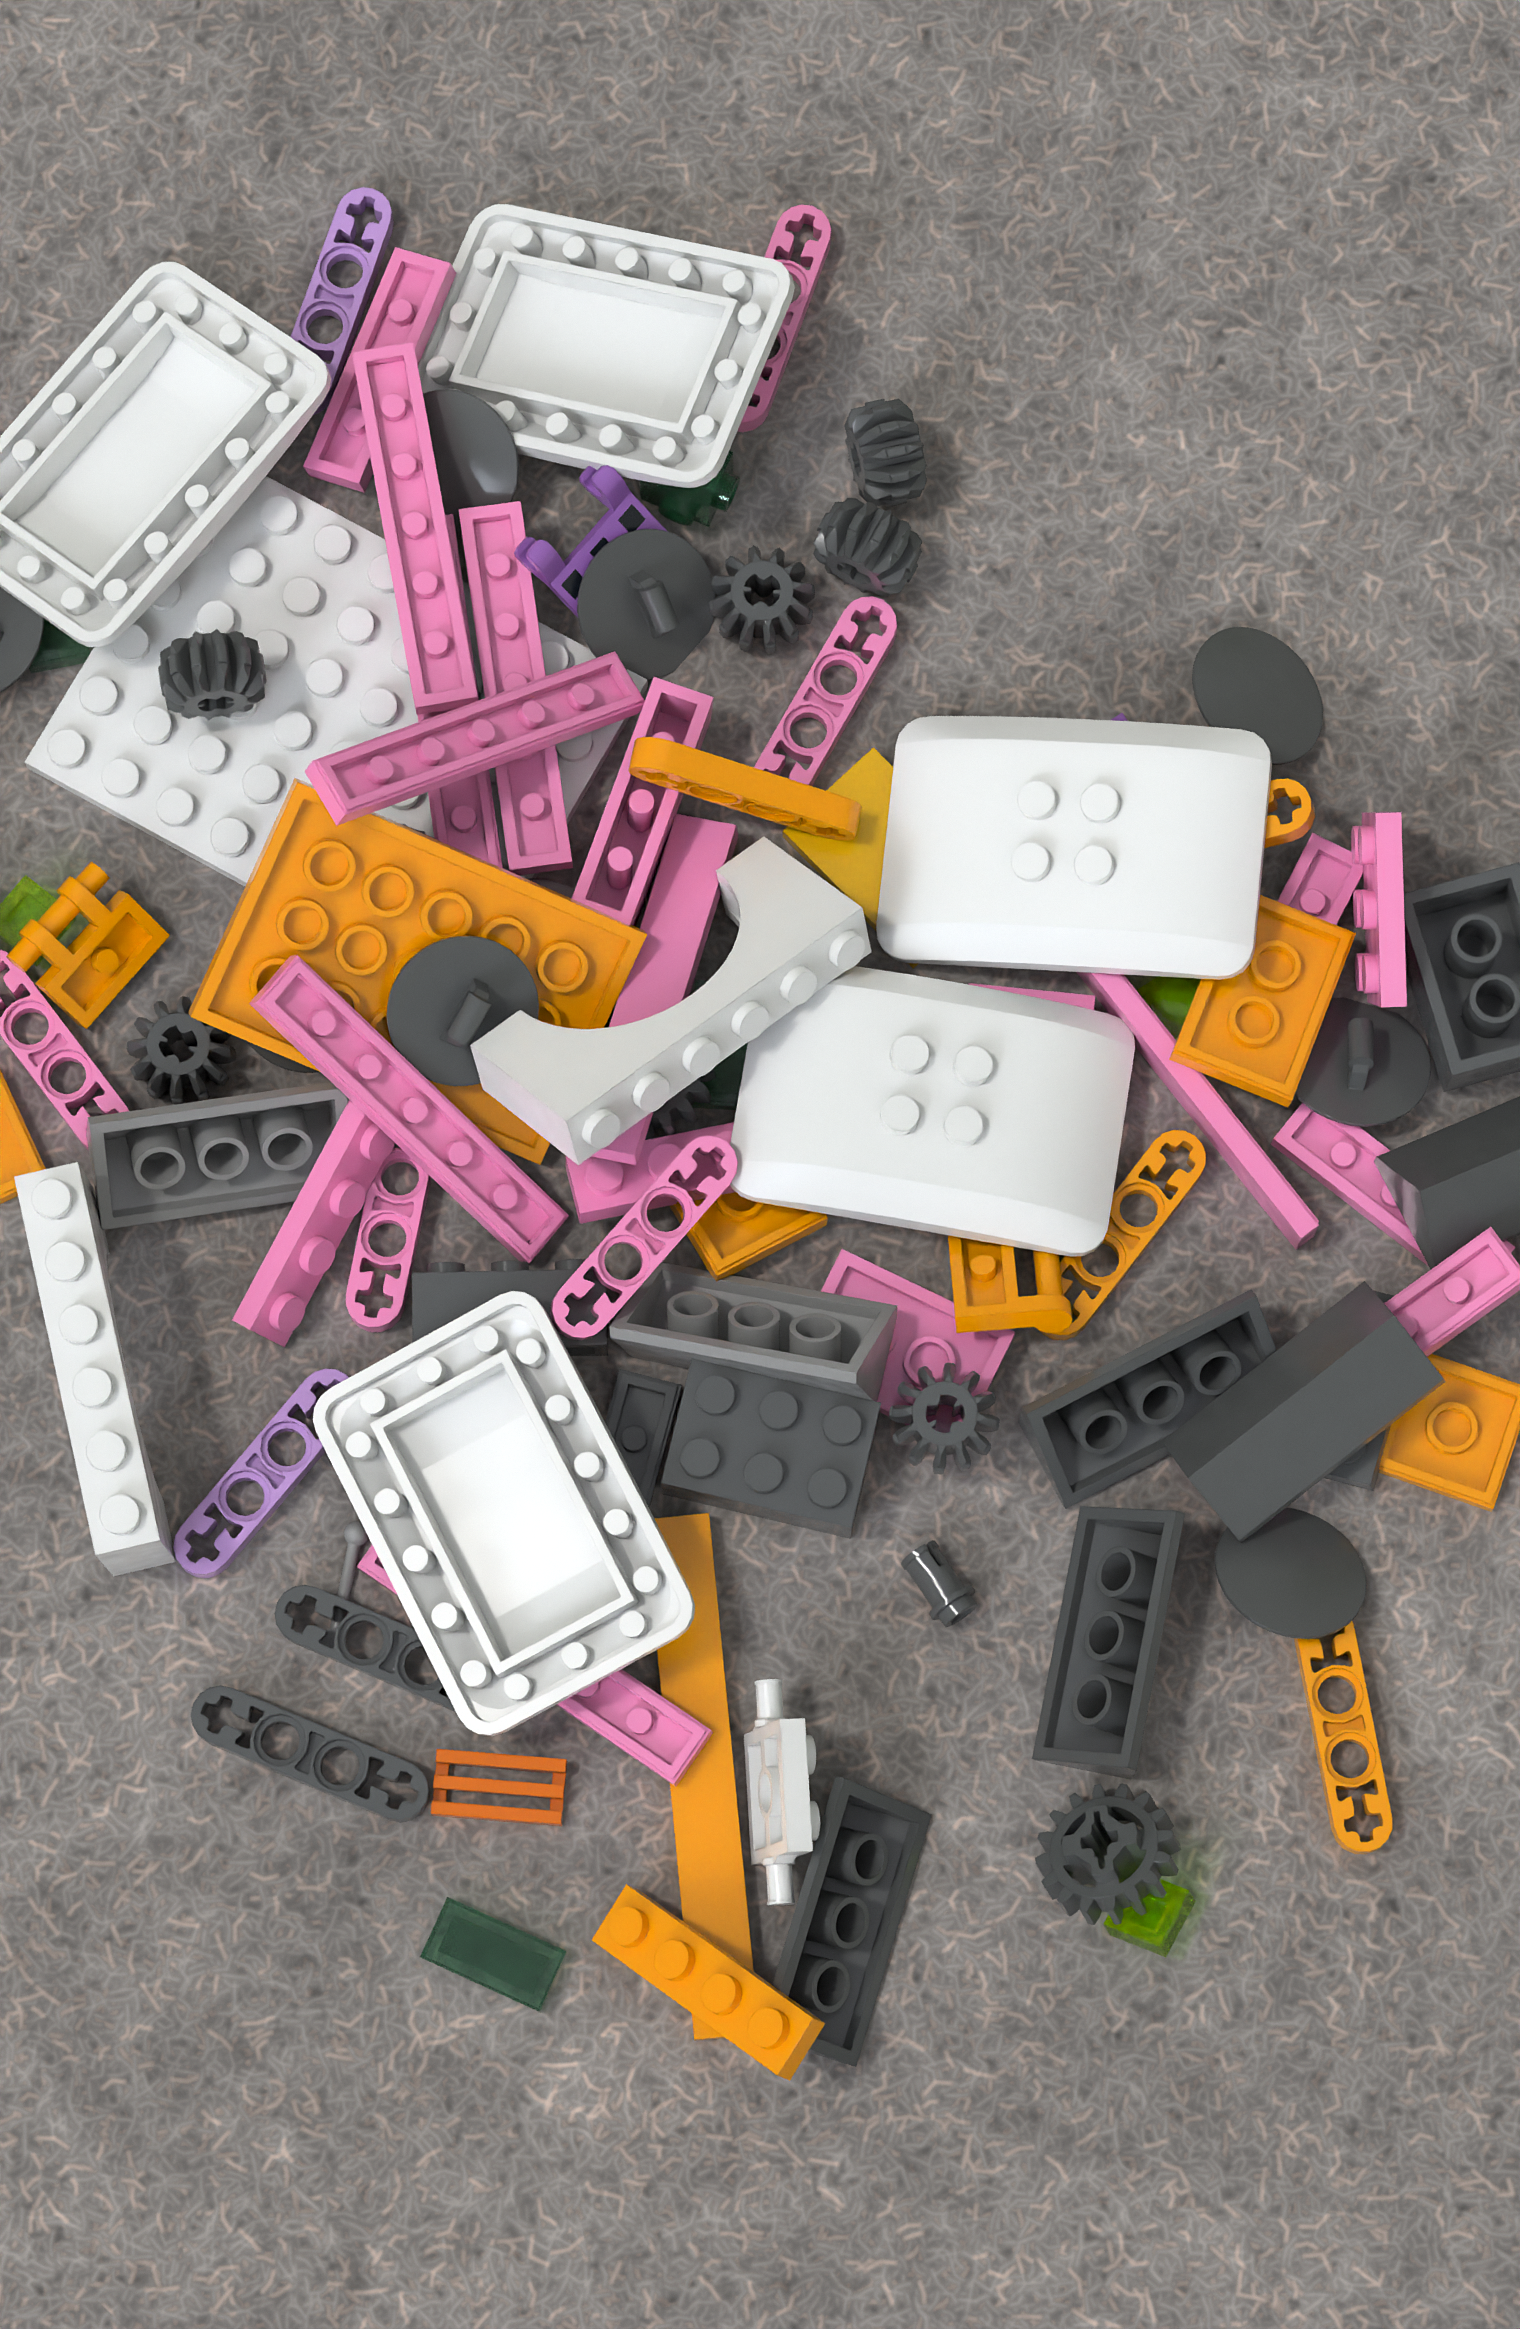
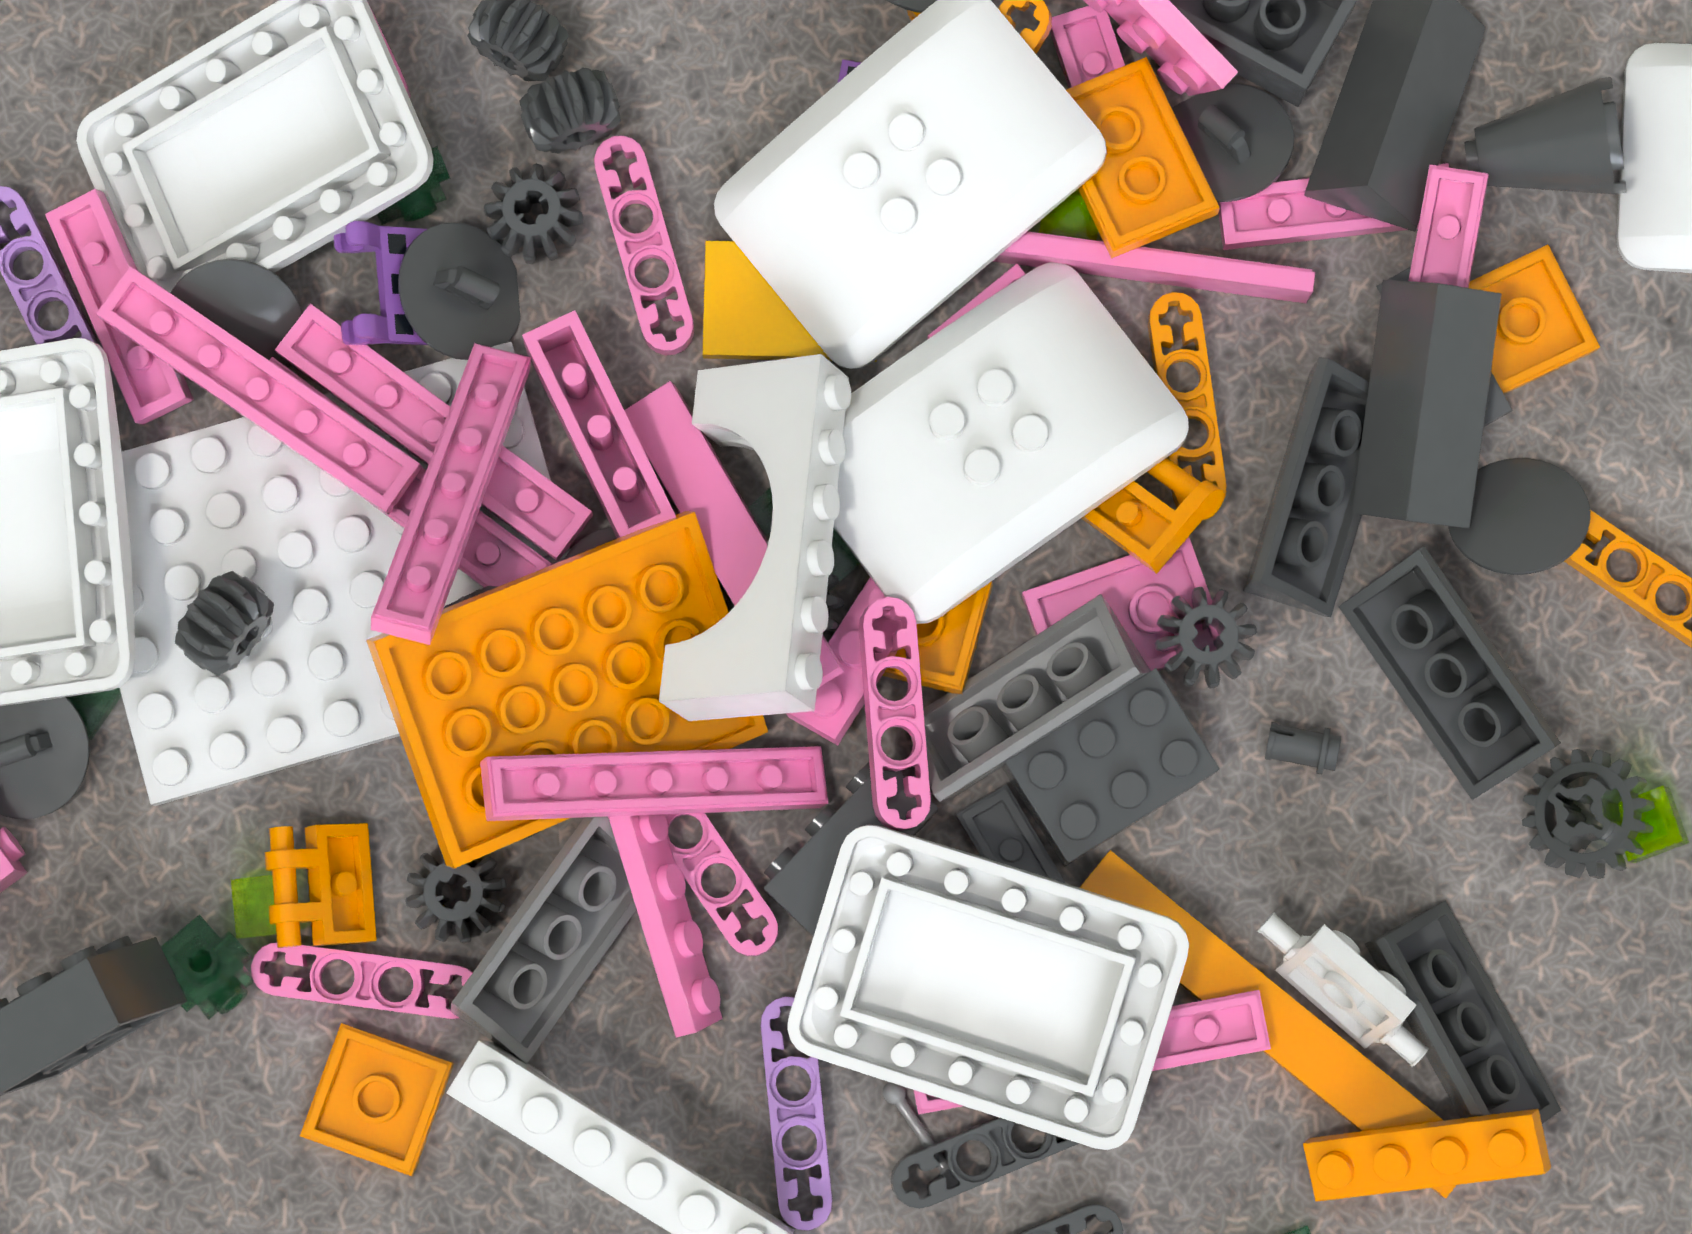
camera: 45 degrees left, 5 degrees up
(444, 1782) = (1192, 1131): orange tile -> none
(453, 998) = (615, 683): dark grey shield -> none
(744, 788) = (658, 351): light orange beam -> none

